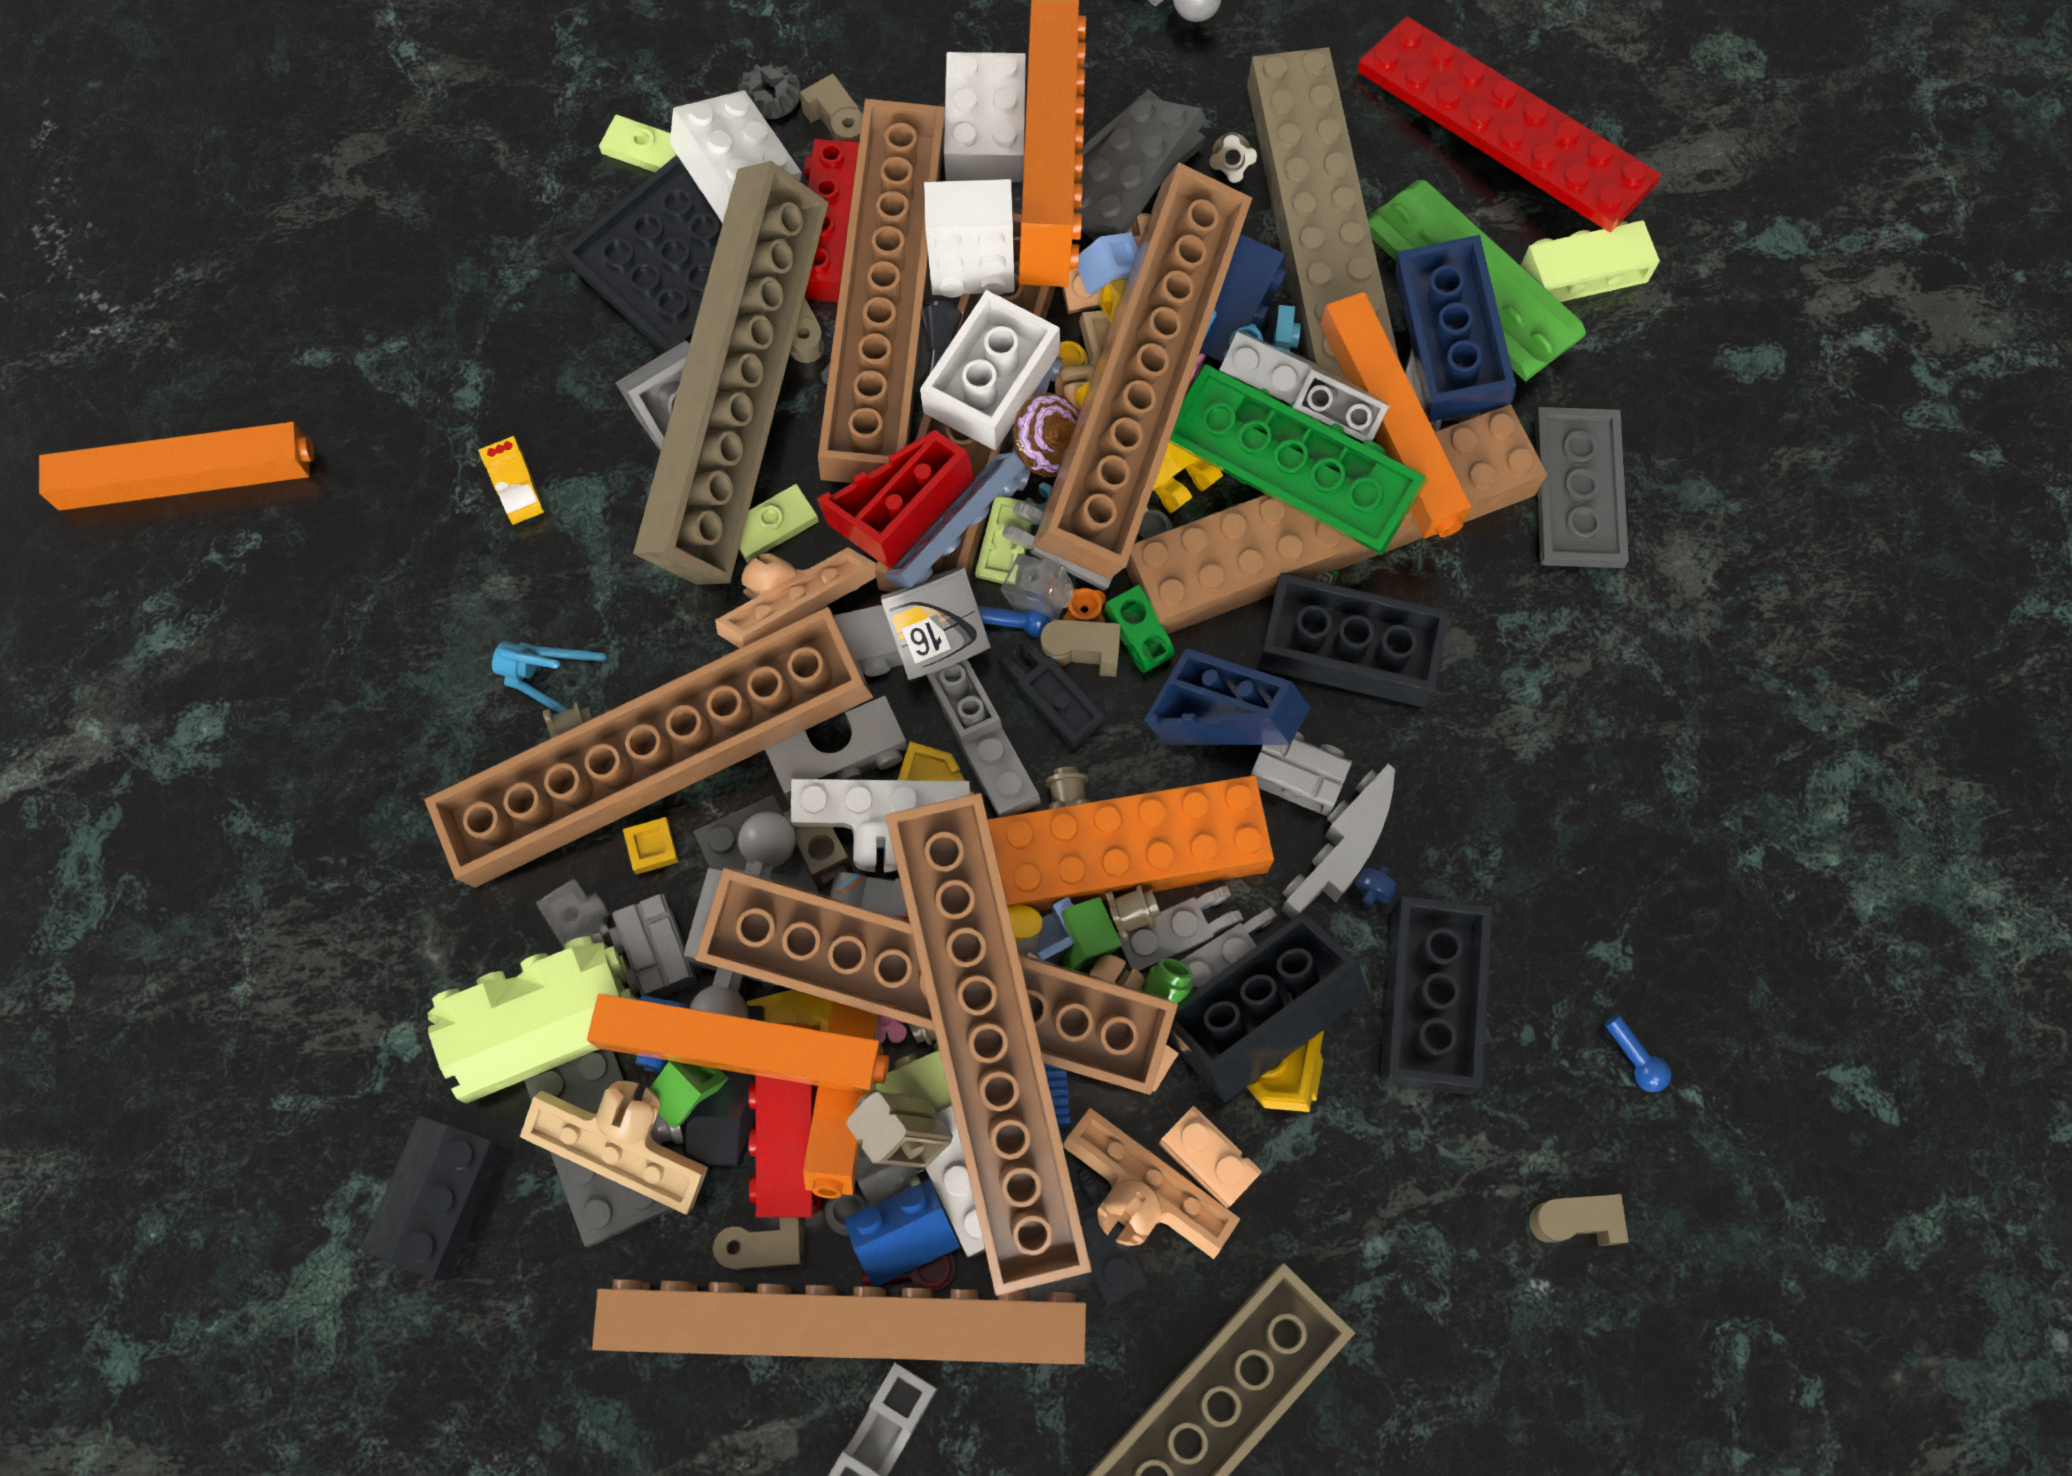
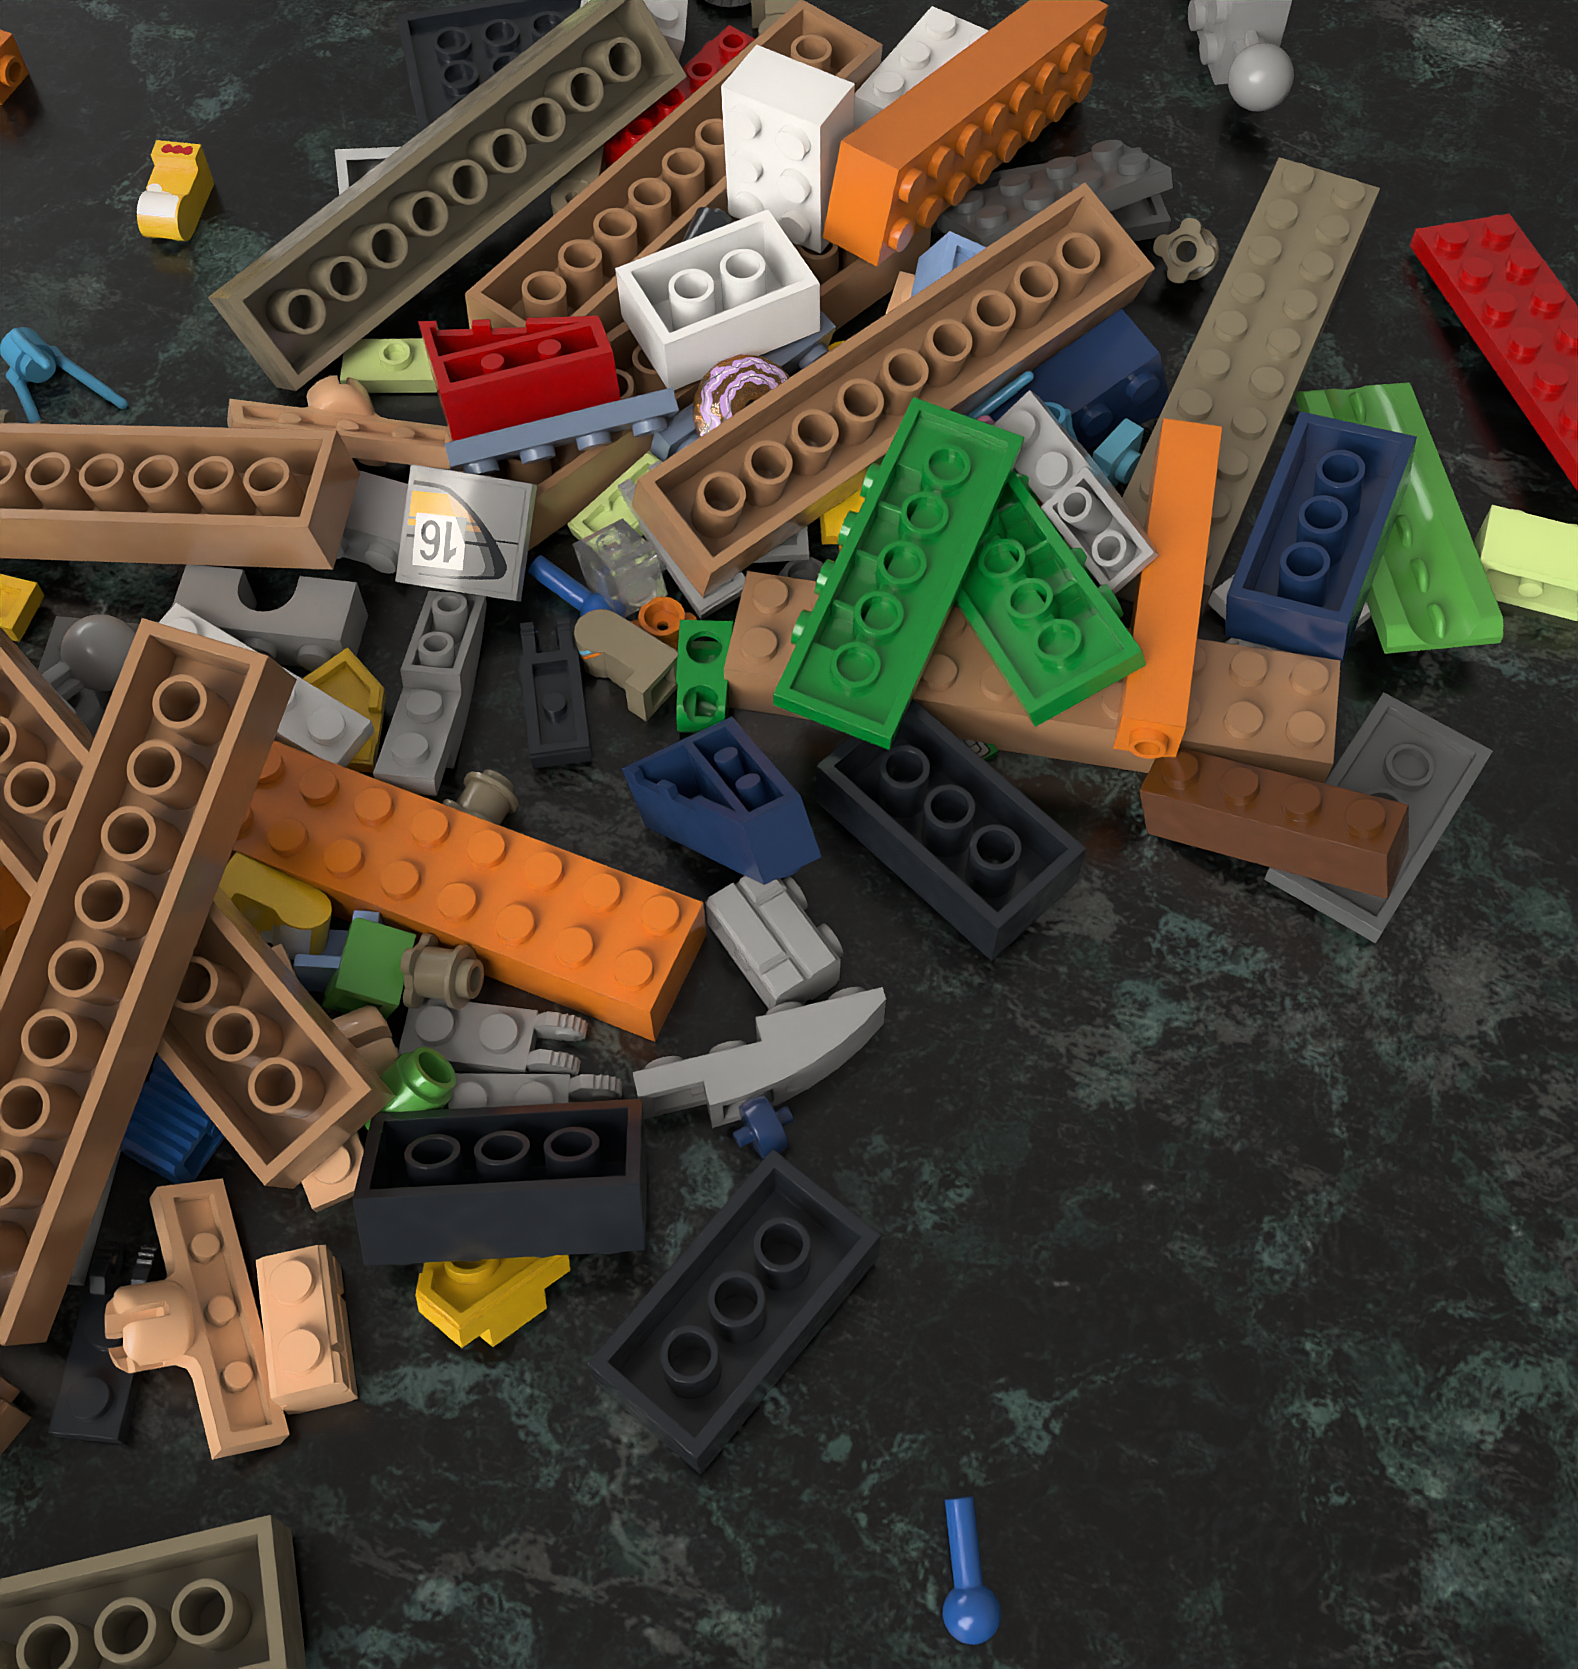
camera: 35 degrees right, 10 degrees down
(1237, 499) = (896, 573): none -> green plate
(1540, 529) = (1277, 820): none -> reddish brown brick

